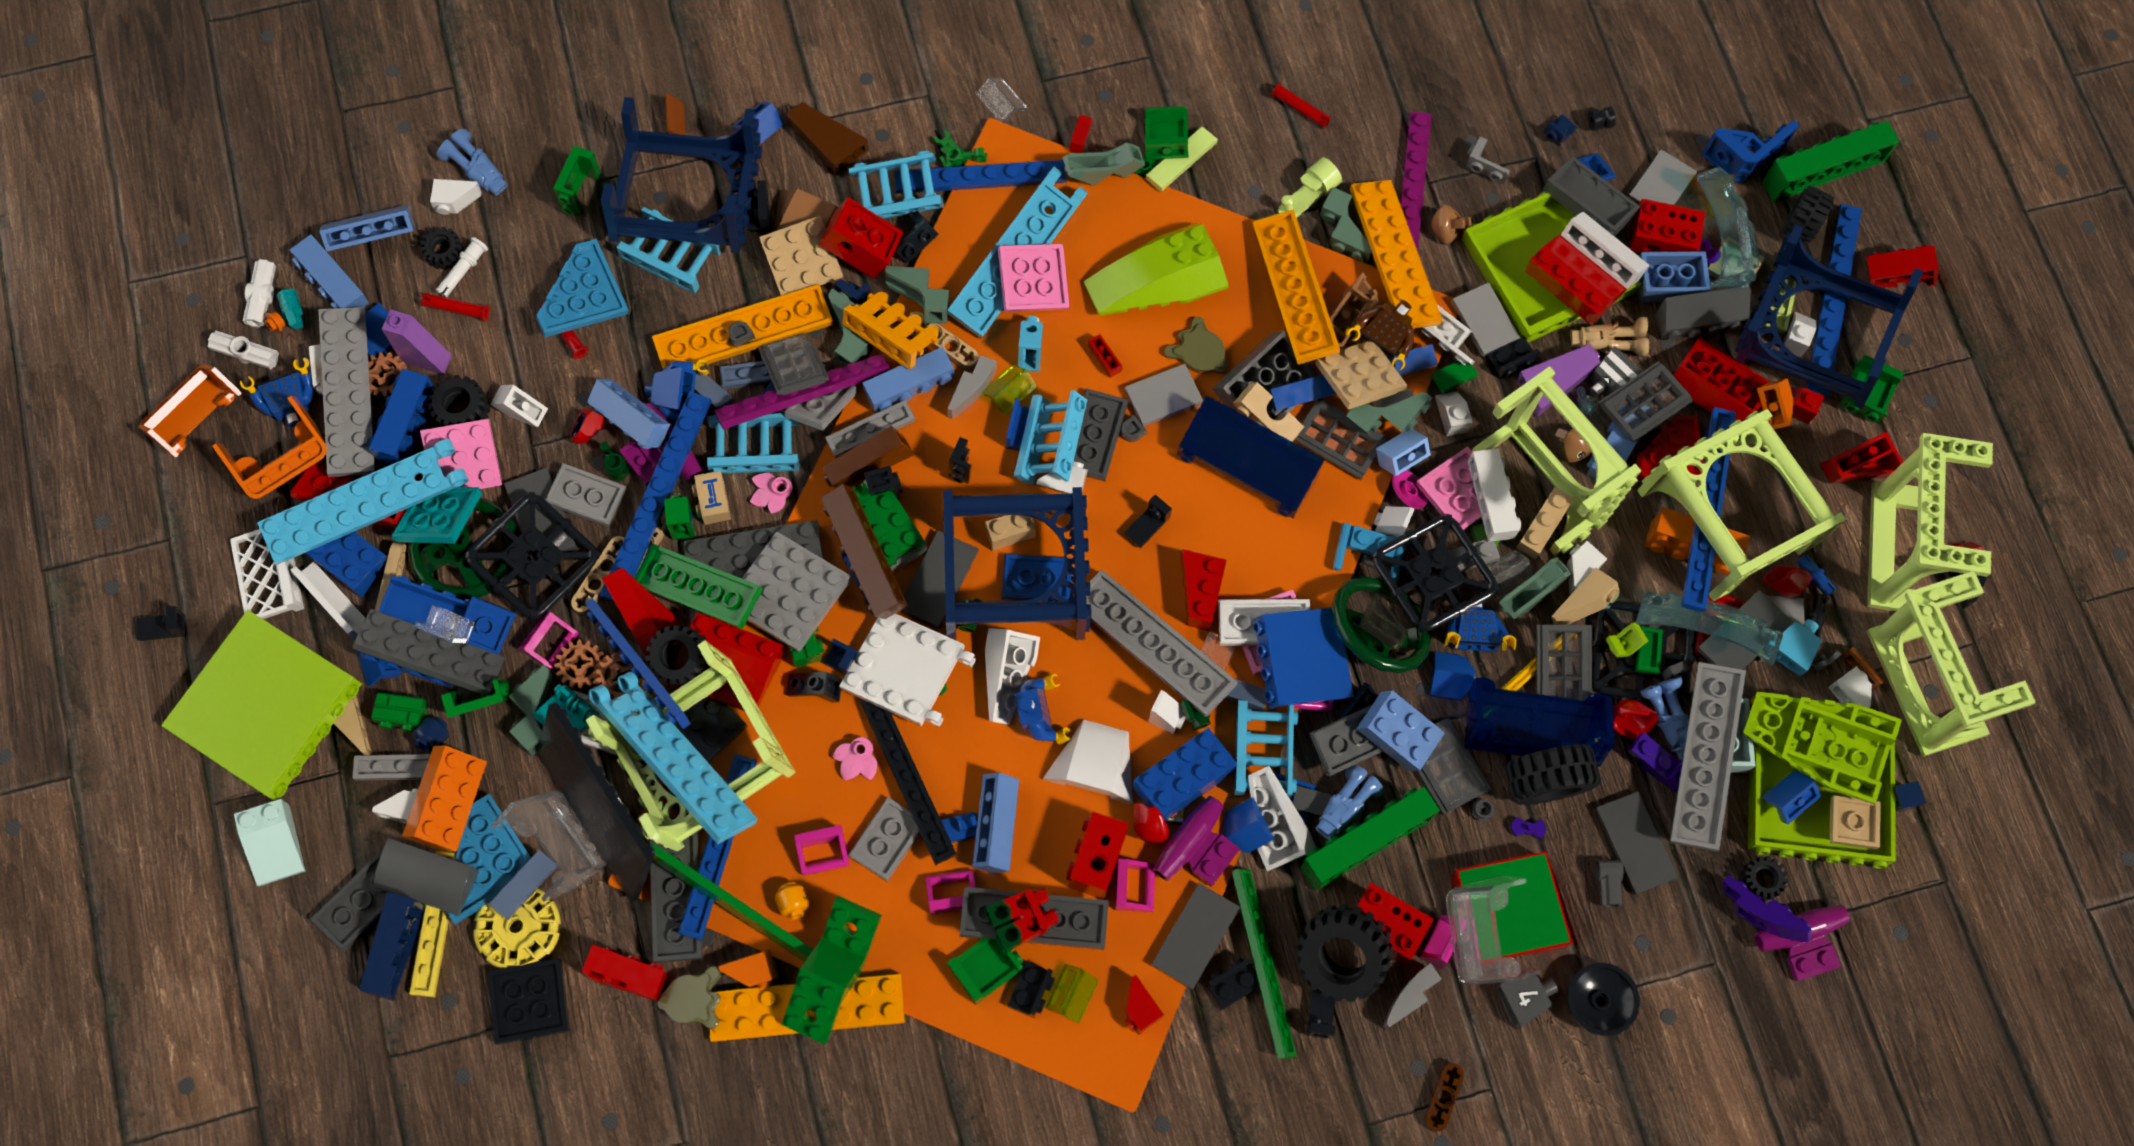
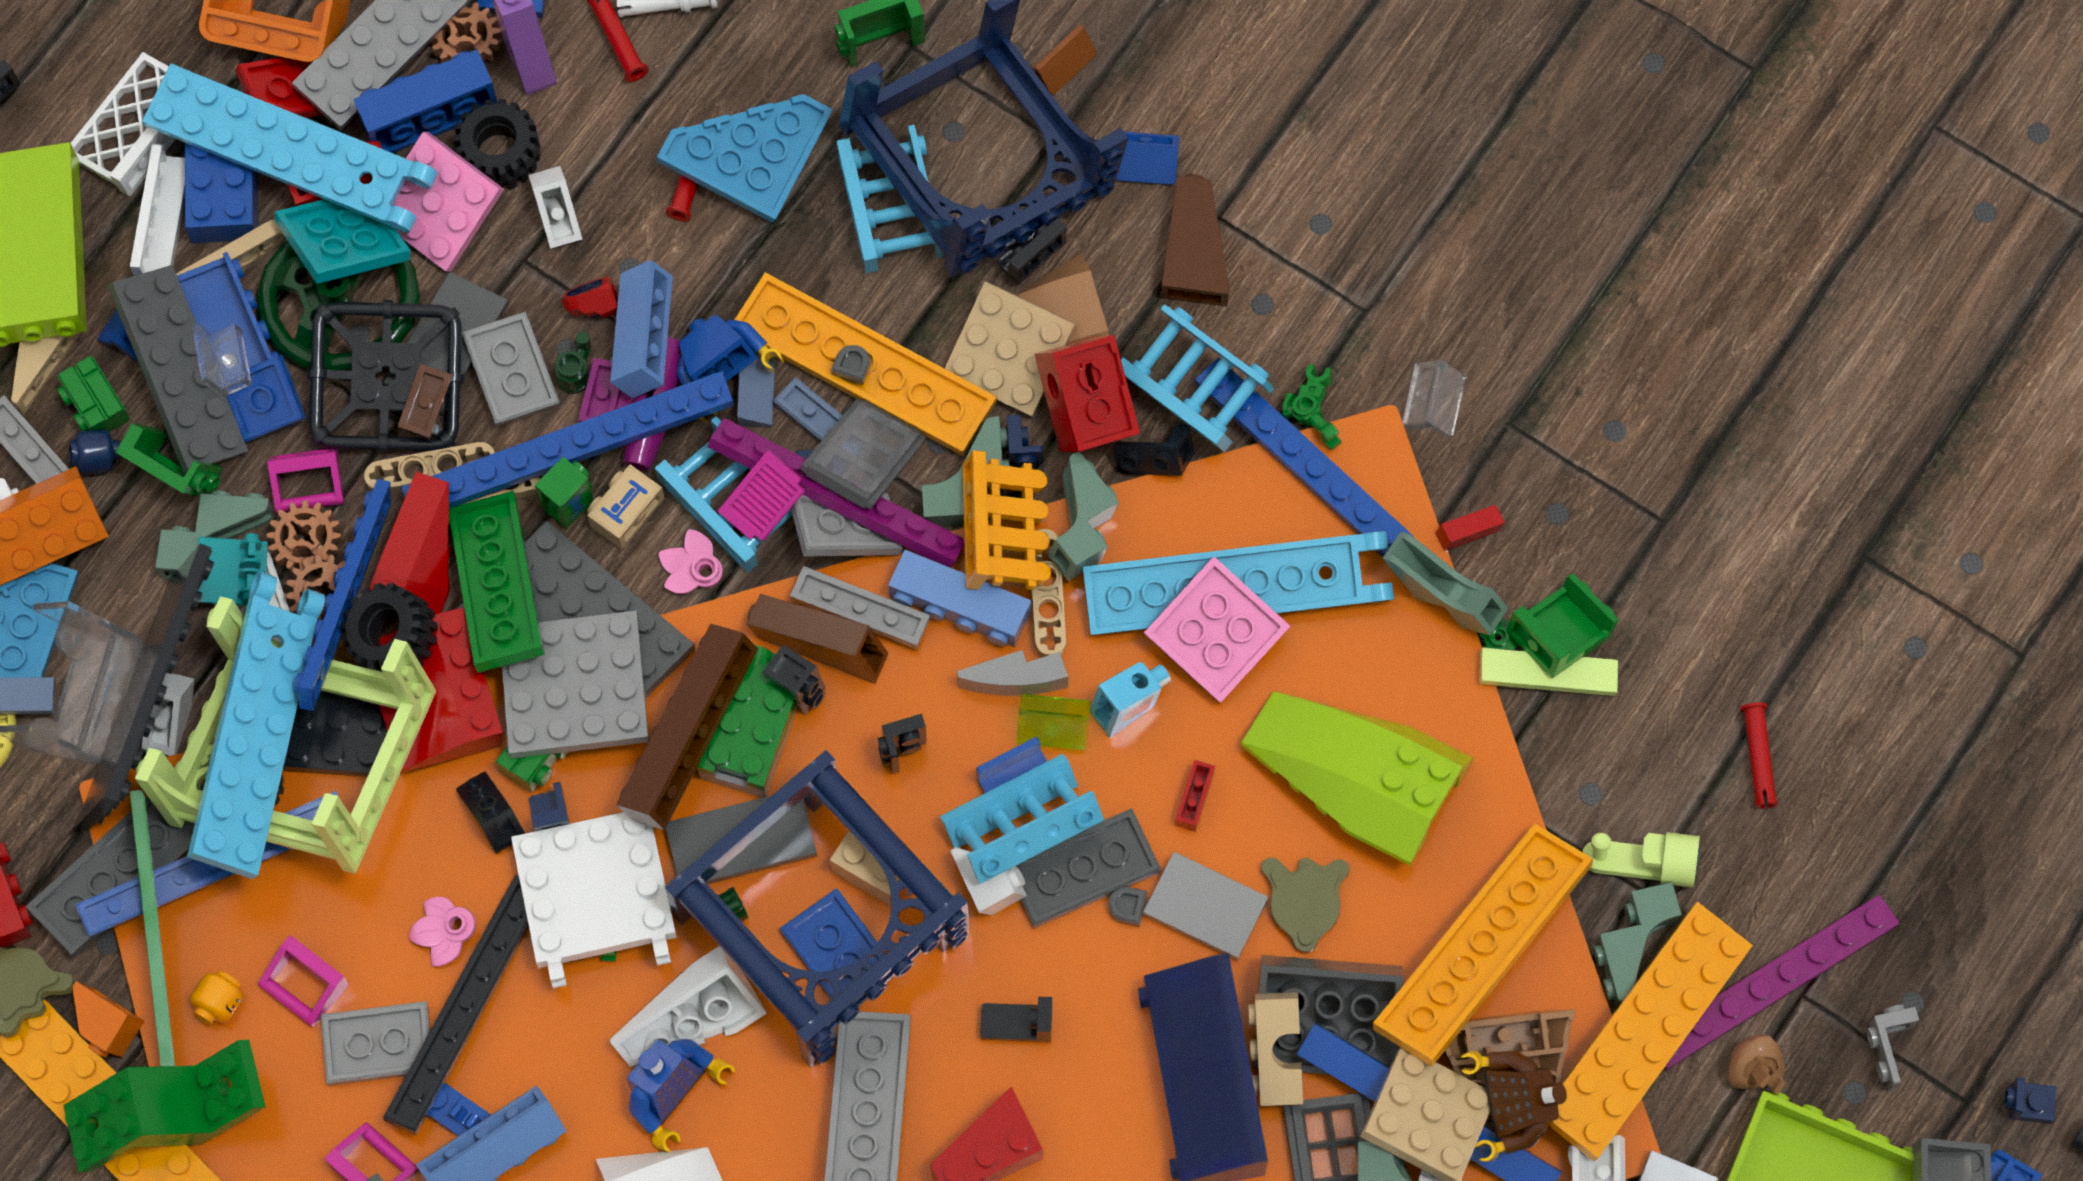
camera: 55 degrees right, 0 degrees up
(566, 545) = (425, 401): none -> reddish brown plate
(773, 425) = (763, 497): none -> dark pink window

